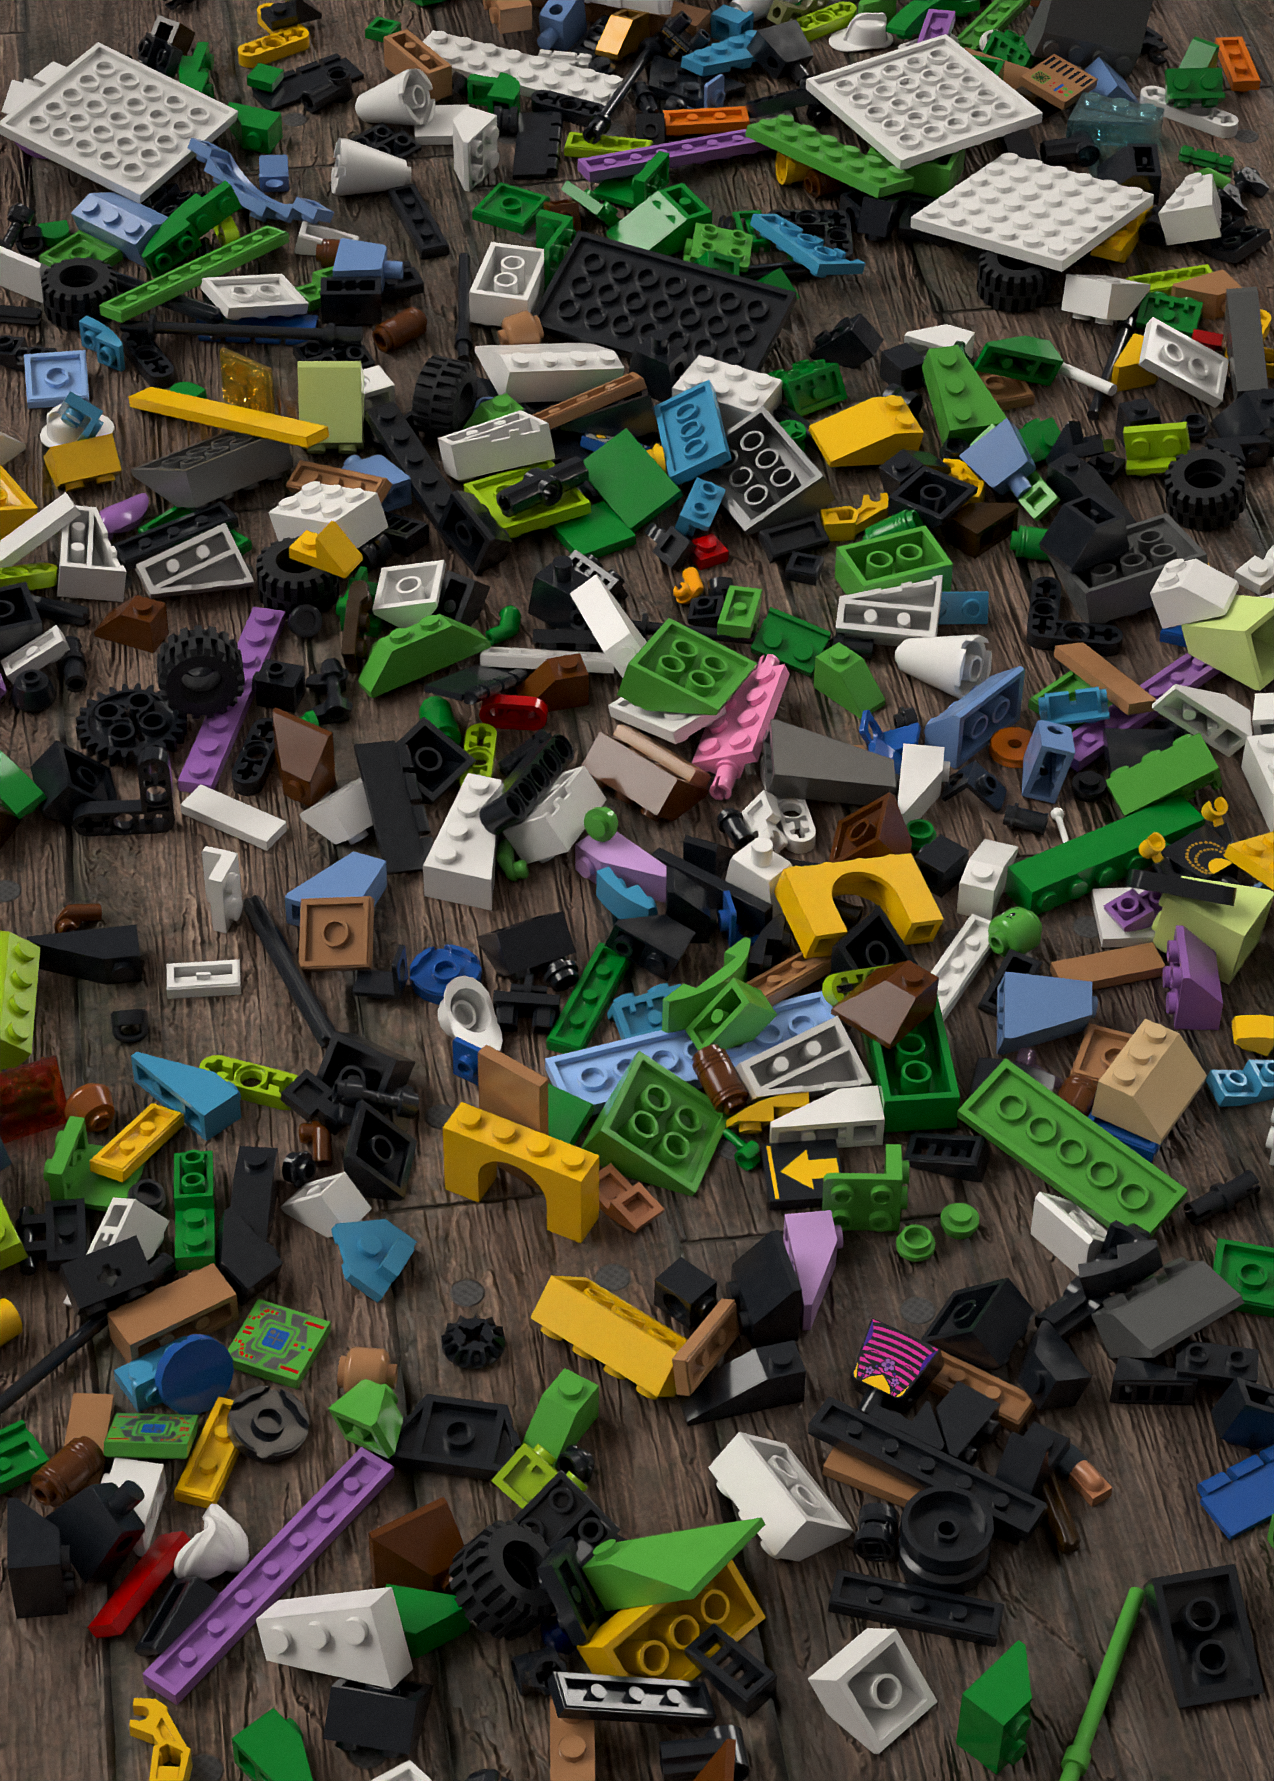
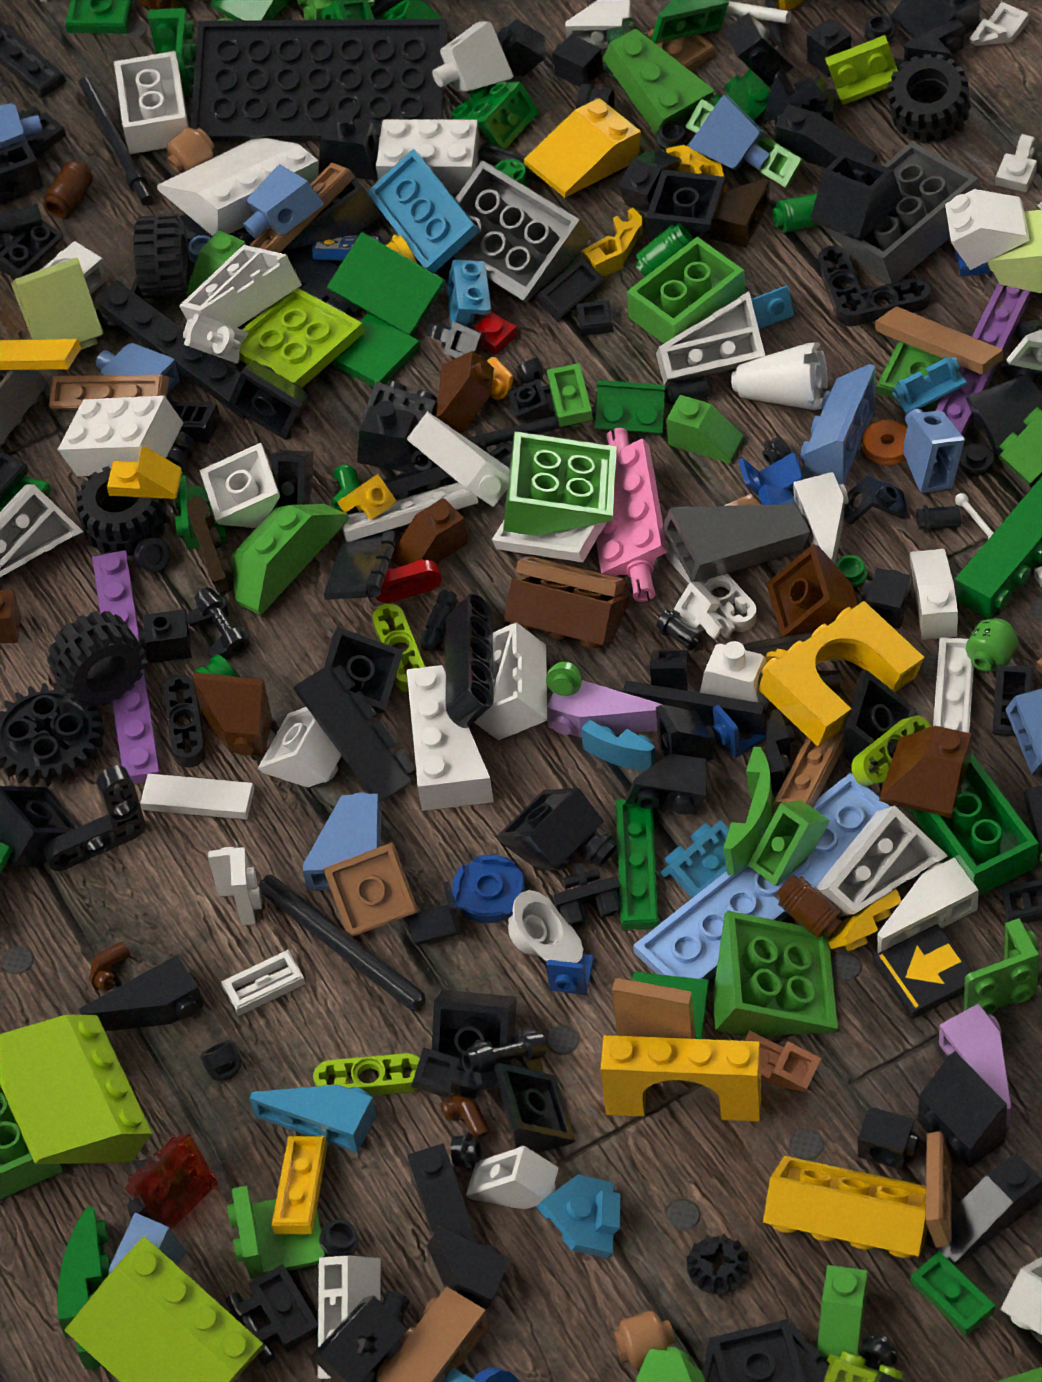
camera: 15 degrees left, 10 degrees up
(94, 1104) = (236, 1165): dark orange cone -> none
(194, 1210) = (394, 1236): green slope -> none
(278, 1343) = (541, 1339): bright green tile -> none
(441, 715) = (341, 614): green head -> none
(452, 468) = (214, 337): none -> white hips
(505, 859) = (494, 753): bright green arm -> none
(516, 634) = (371, 497): none -> yellow bracket
(542, 486) = (310, 324): black piece -> none
(568, 386) = (281, 202): none -> medium blue torso
(650, 582) = (463, 390): none -> reddish brown slope
(673, 1442) = (952, 1294): none -> green plate
(746, 1153) = (866, 969): green hand -> none
(804, 333) = (473, 60): none -> white torso
(1067, 399) = (757, 48): none -> black brick

